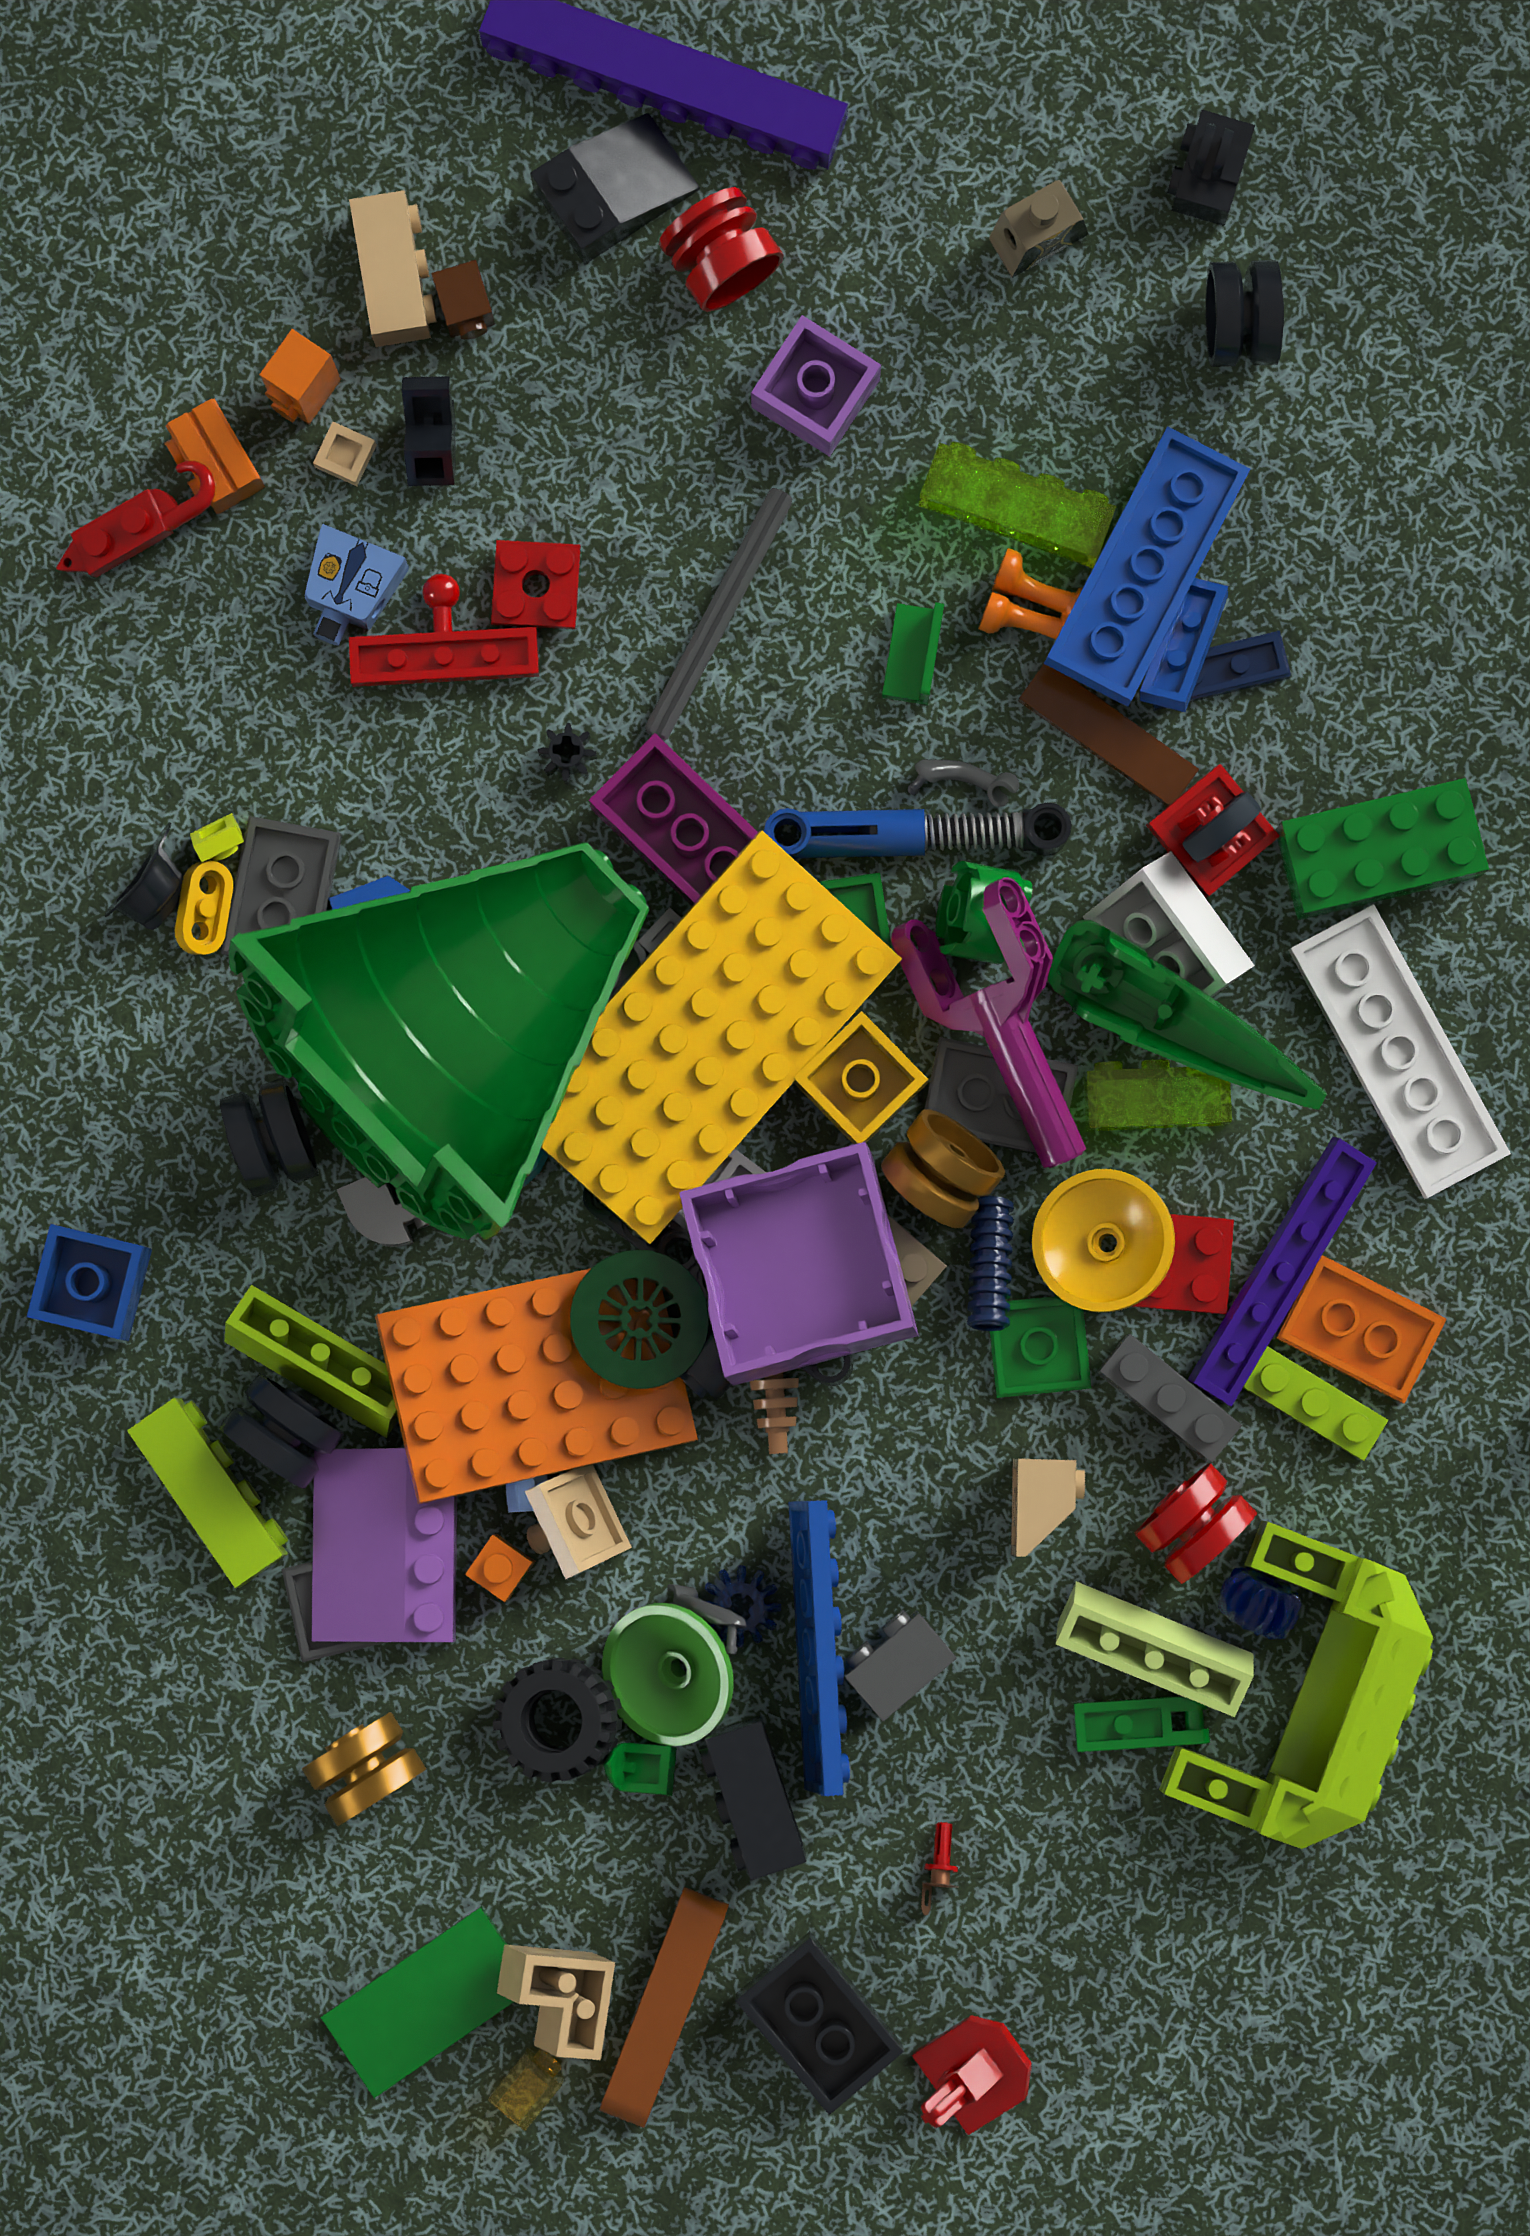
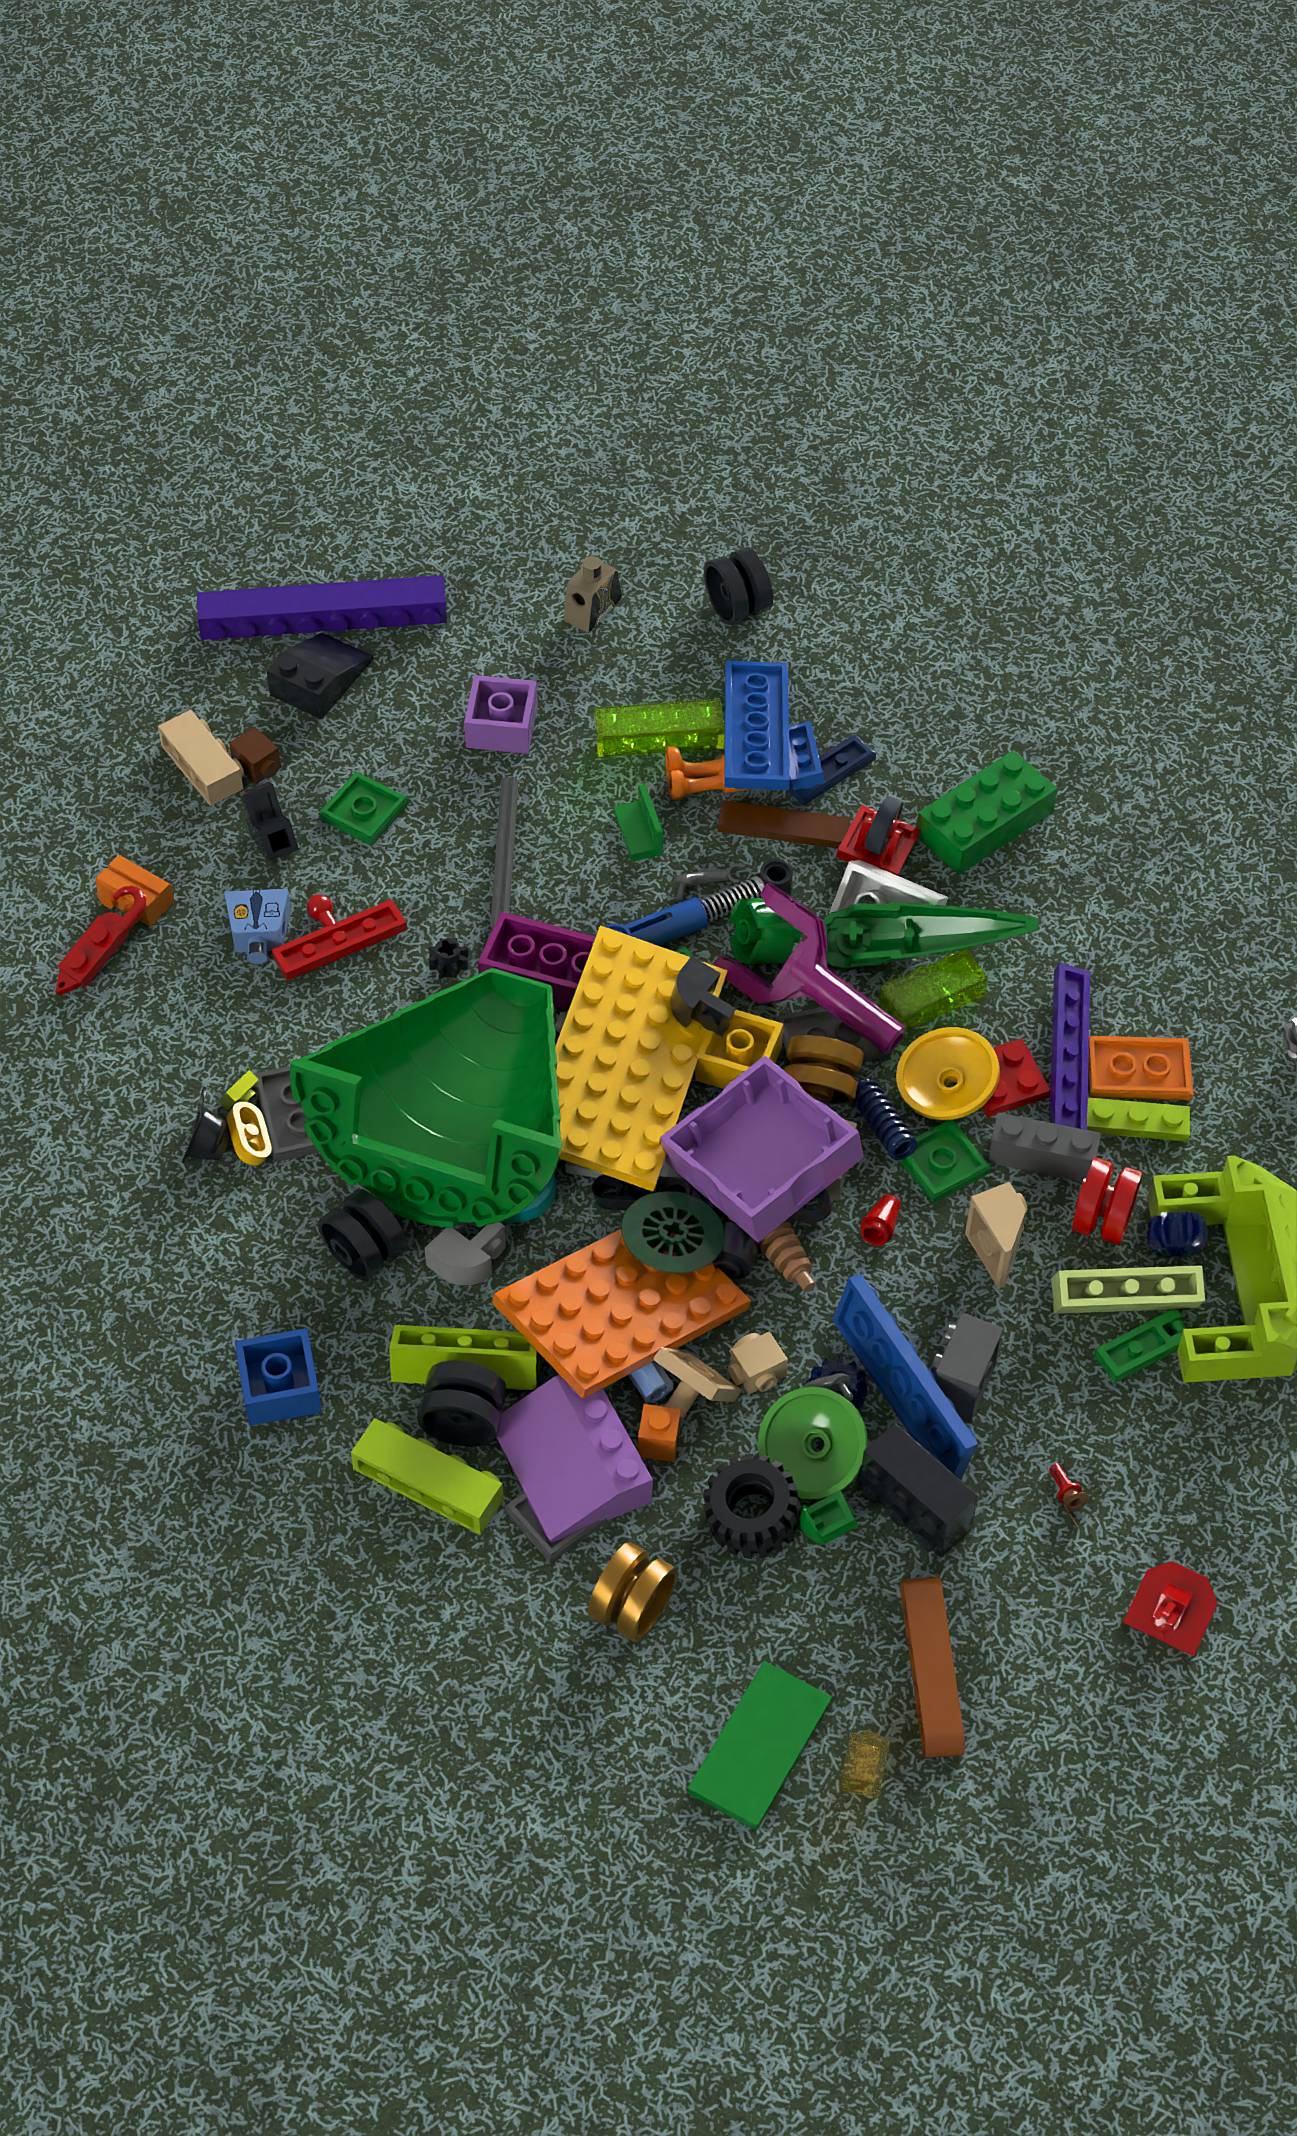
camera: 30 degrees left, 30 degrees down
(299, 378) = (171, 822): orange brick -> none
(344, 453) = (219, 860): tan plate -> none
(520, 560) = (382, 867): red piece -> none
(571, 448) = (363, 808): none -> green tile
(571, 1995) = (859, 1675): tan brick -> none
(661, 1526) = (757, 1362): none -> tan brick
(720, 249) = (405, 667): red wheel -> none
(819, 2023) = (1046, 1618): black brick -> none
(821, 997) = (695, 1000): none -> black brick
(915, 1400) = (881, 1221): none -> red cone
(1212, 167) = (676, 534): black brick -> none
(1399, 1051) = (1066, 911): white plate -> none

